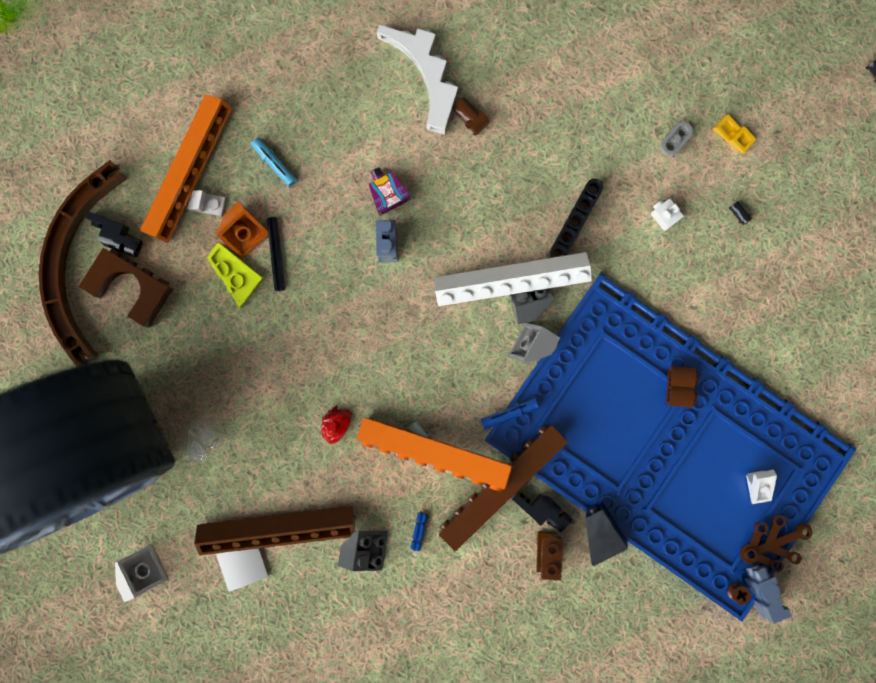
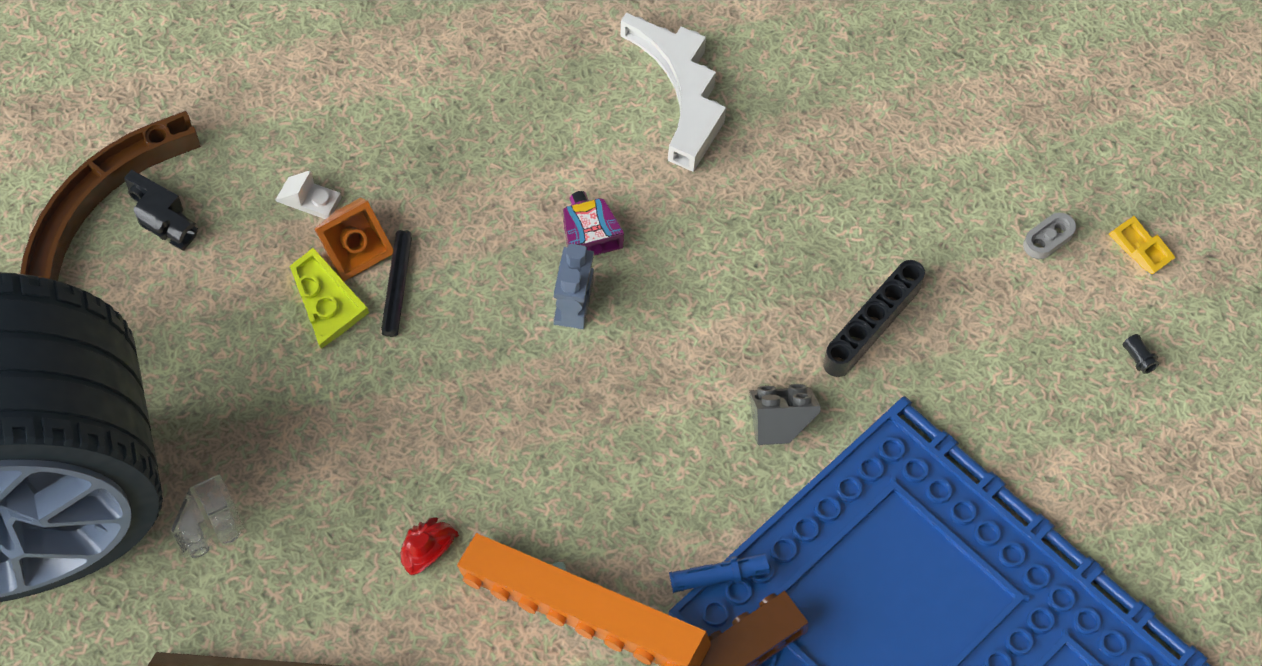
camera: 10 degrees right, 25 degrees down
(152, 291) = (142, 250): reddish brown arch -> none
(186, 168) = (292, 145): orange brick -> none
(259, 146) = (421, 151): medium azure pin -> none
(473, 119) = (739, 154): reddish brown piece -> none
(512, 279) = (760, 374): white brick -> none
(533, 343) = (781, 474): light grey slope -> none
(666, 213) = (1022, 332): white brick -> none
(681, 386) = (1013, 583): reddish brown brick -> none

